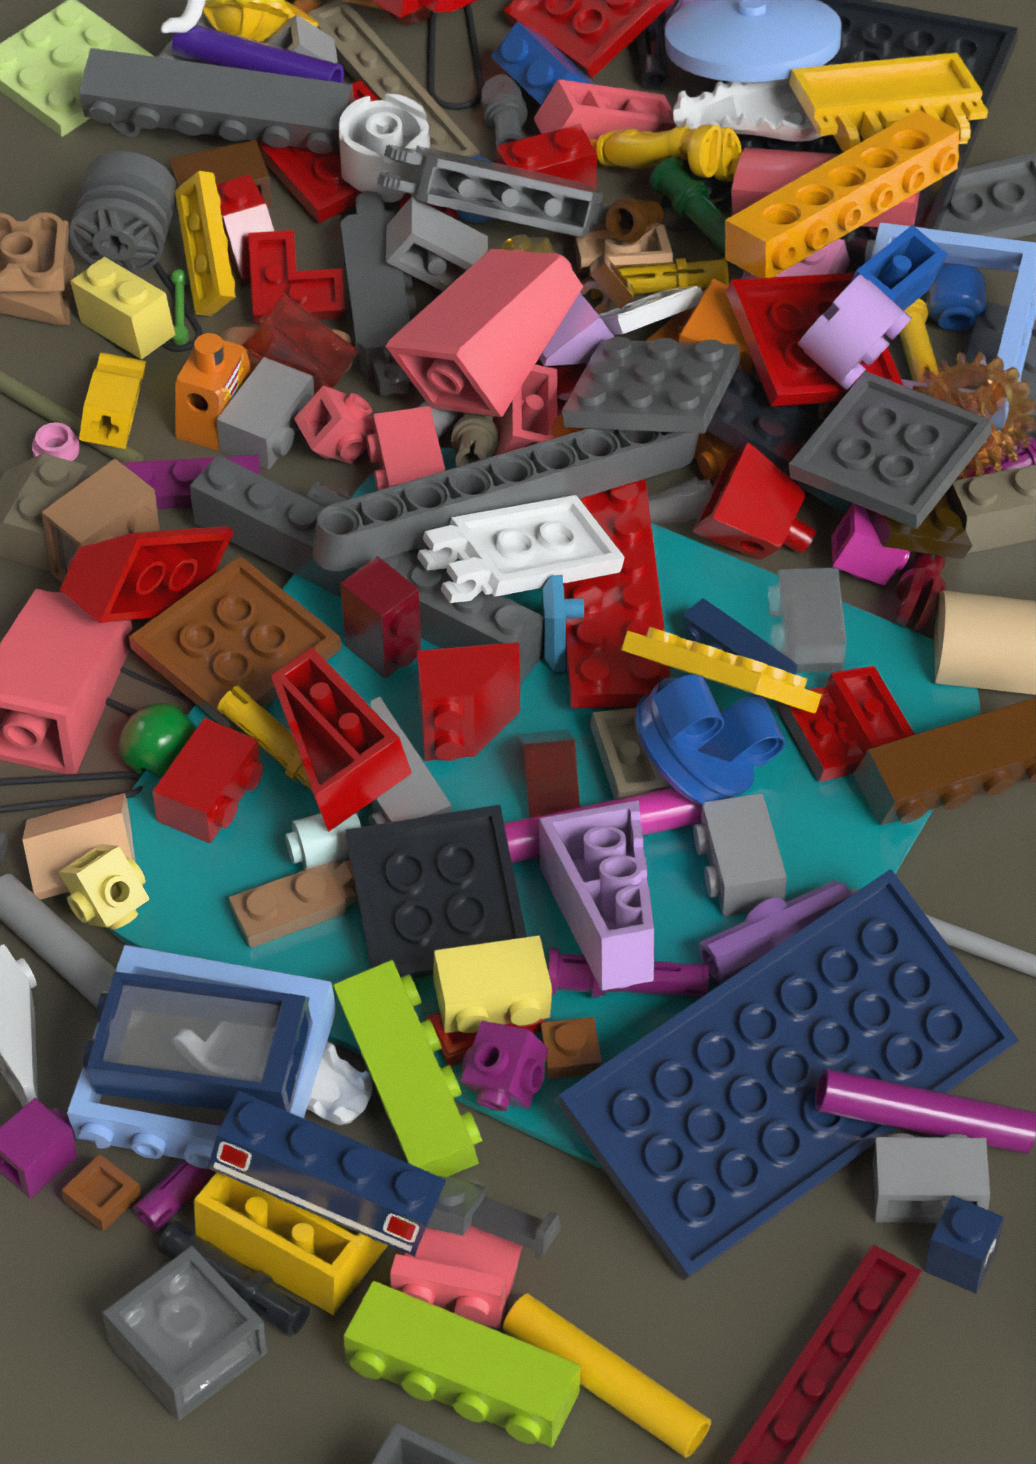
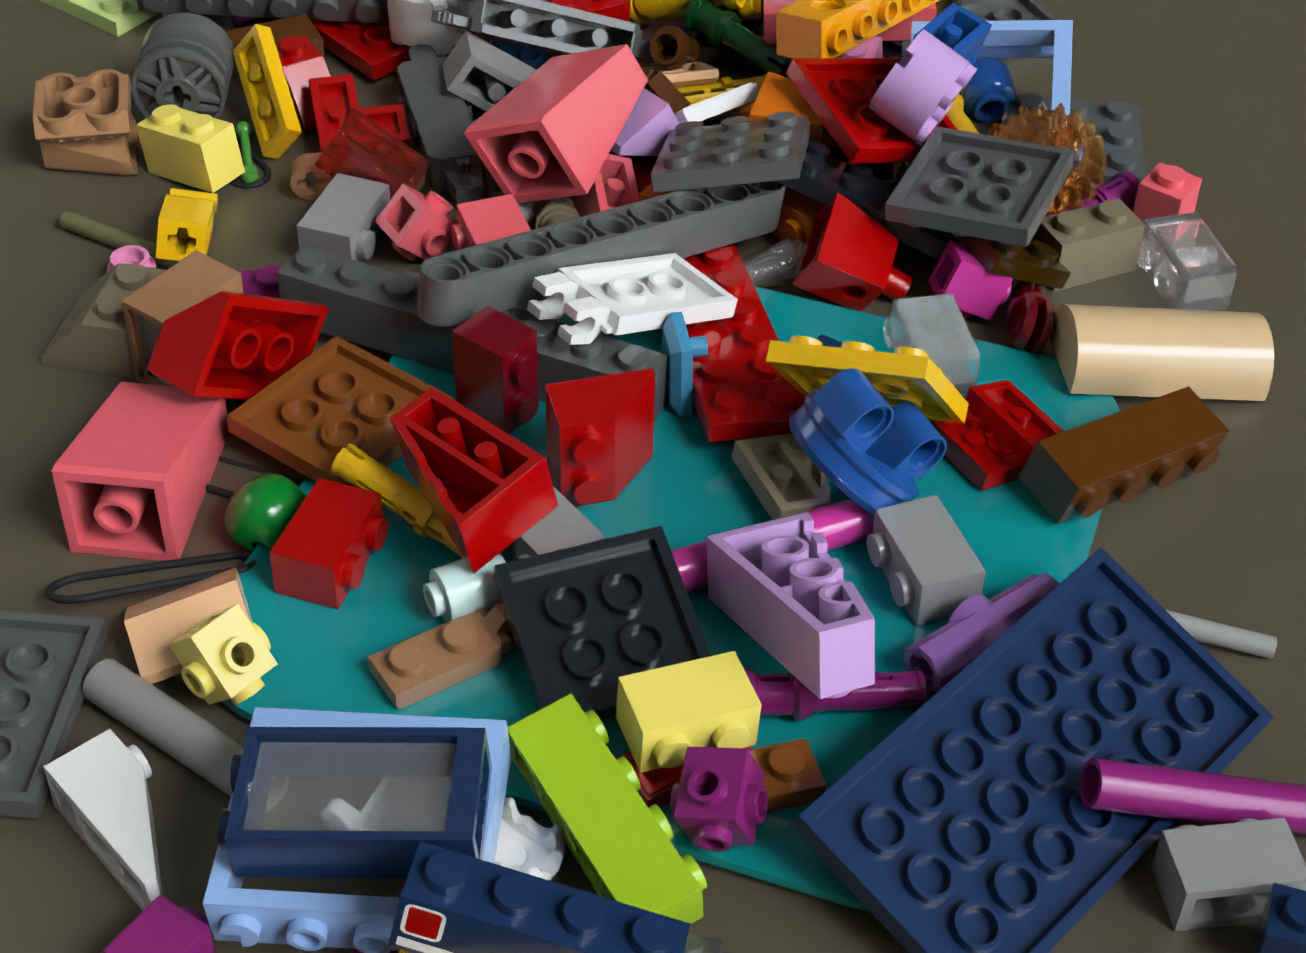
camera: 10 degrees left, 10 degrees down
(212, 378) = (282, 198): orange torso -> none
(549, 771) = (698, 501): clear red slope -> none

